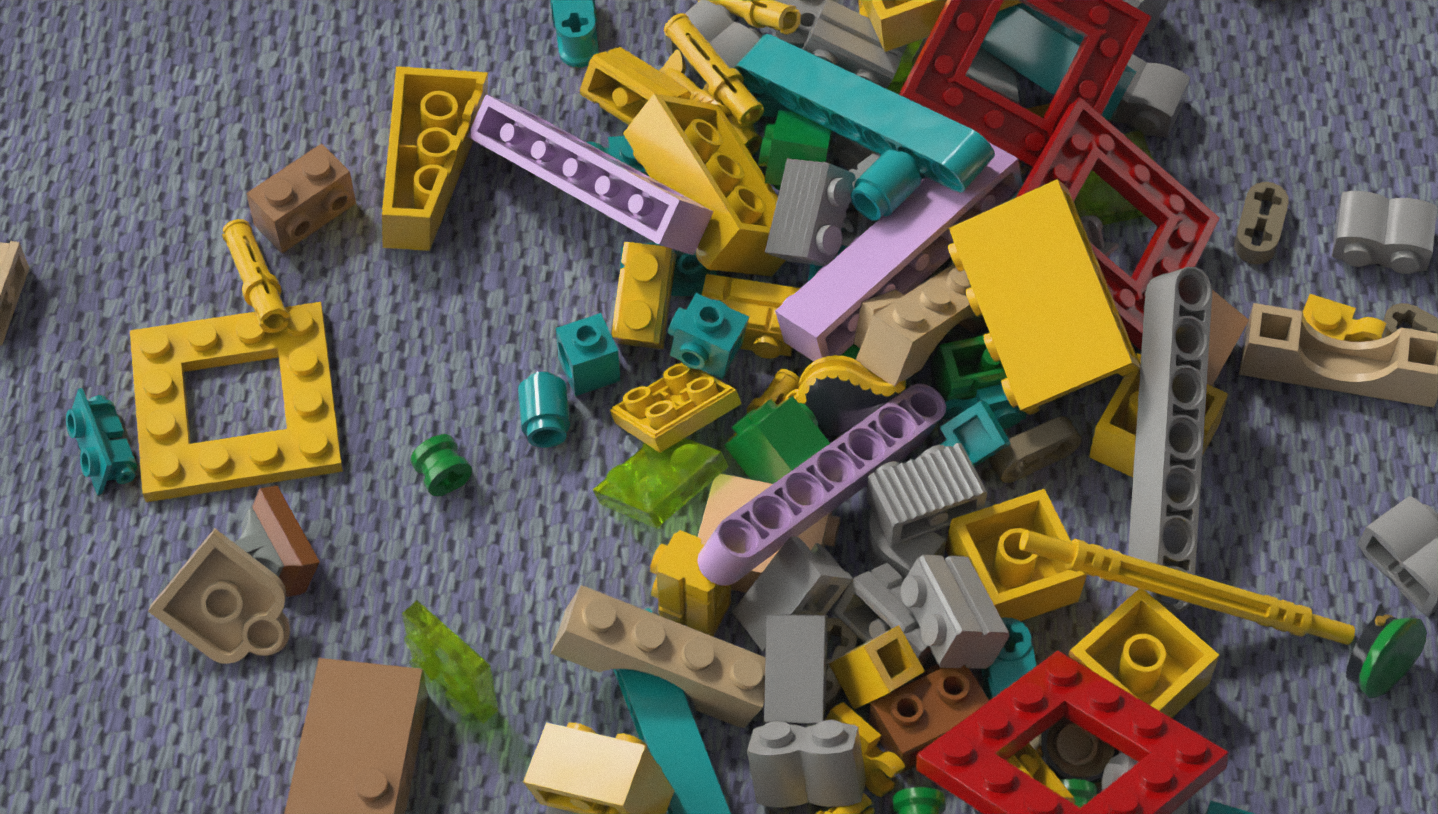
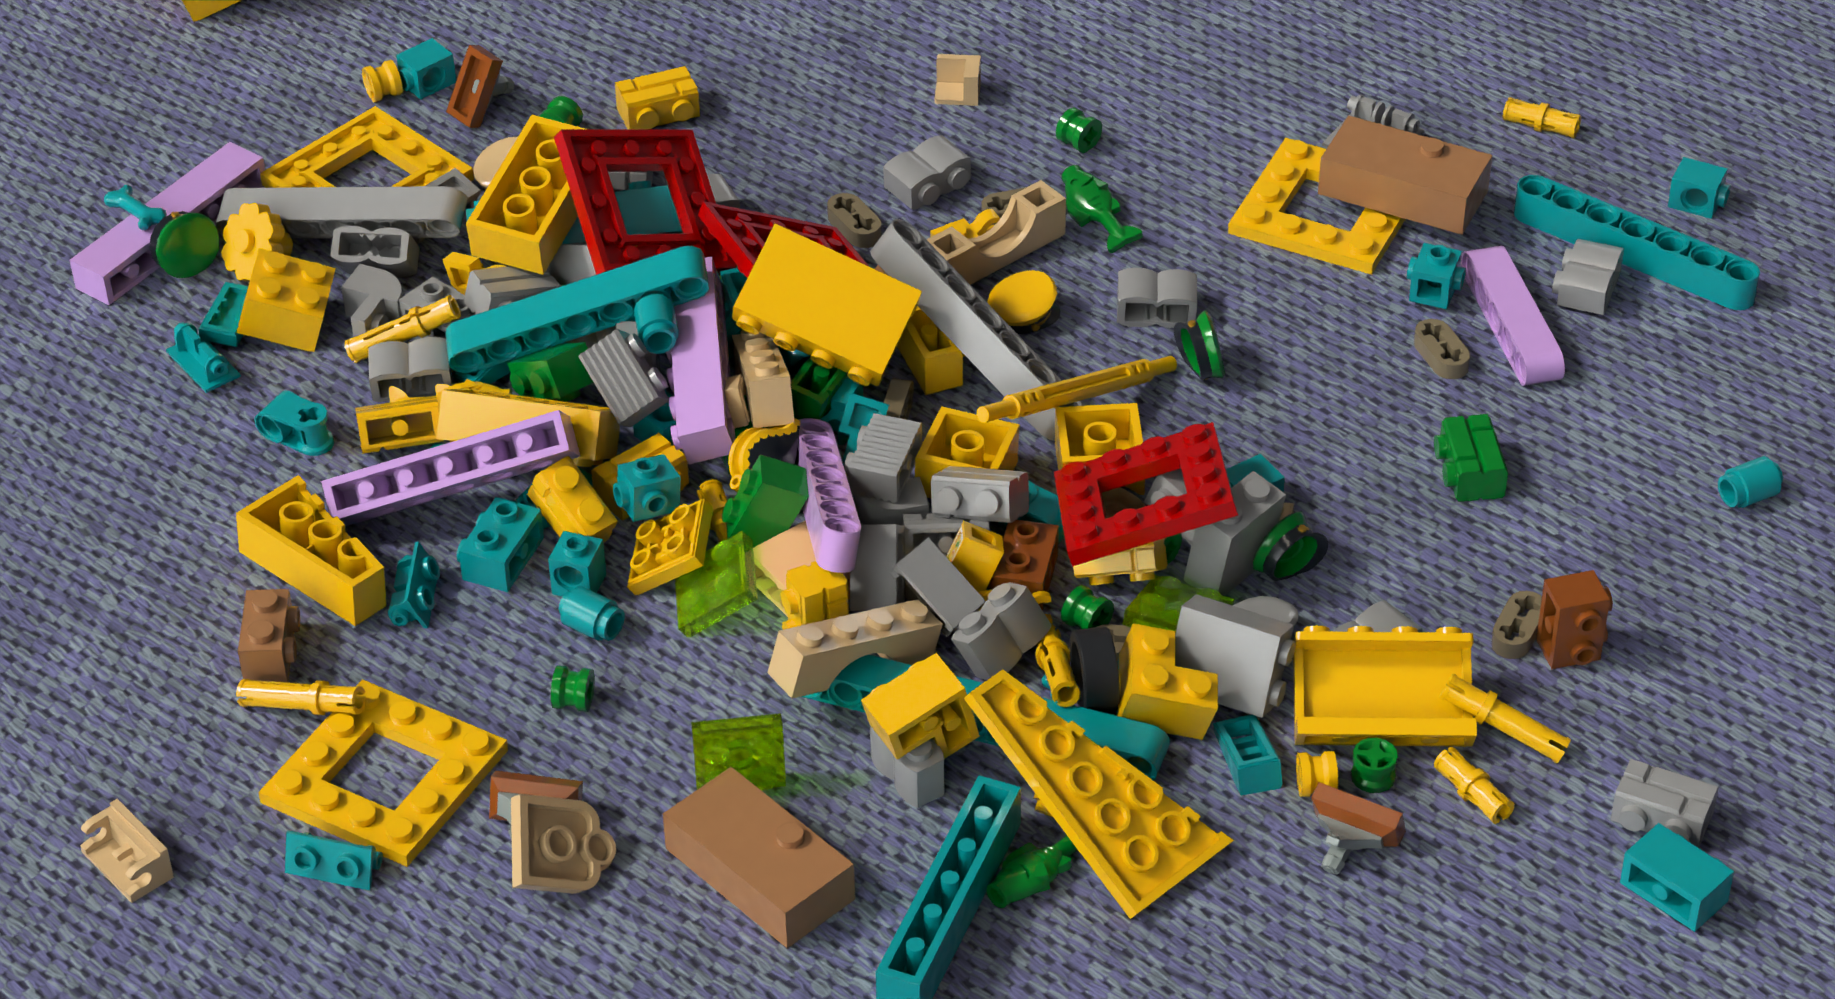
camera: 50 degrees left, 15 degrees down
(463, 257) = (414, 588): none -> teal hinge
(566, 276) = (500, 544): none -> teal brick
(723, 82) = (432, 368): yellow pin -> none
(1292, 446) = (1026, 301): none -> yellow piece

